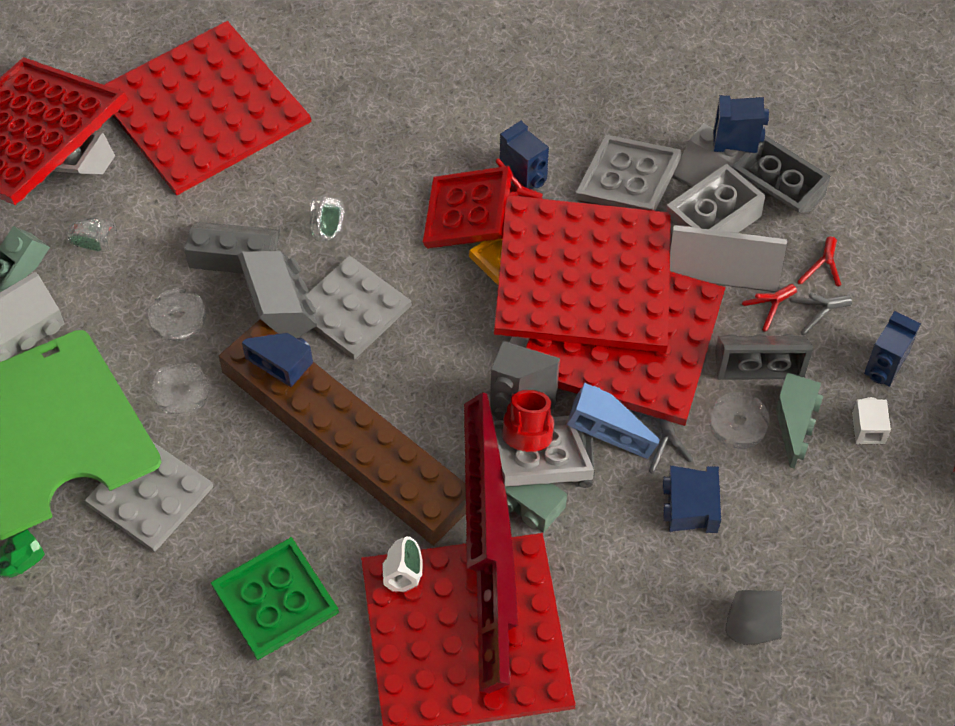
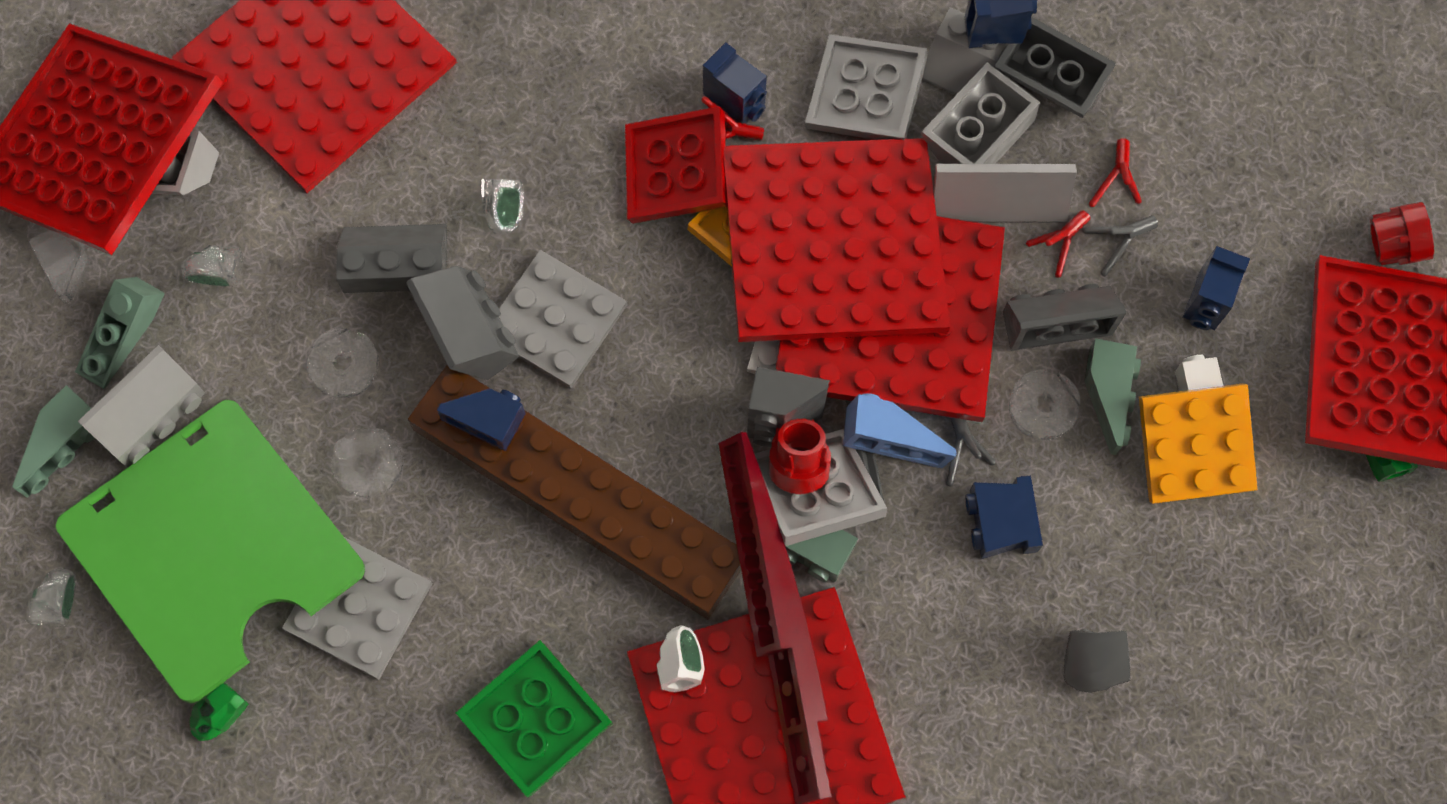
camera: 10 degrees left, 15 degrees up
(863, 463) = (1198, 443): none -> light orange plate

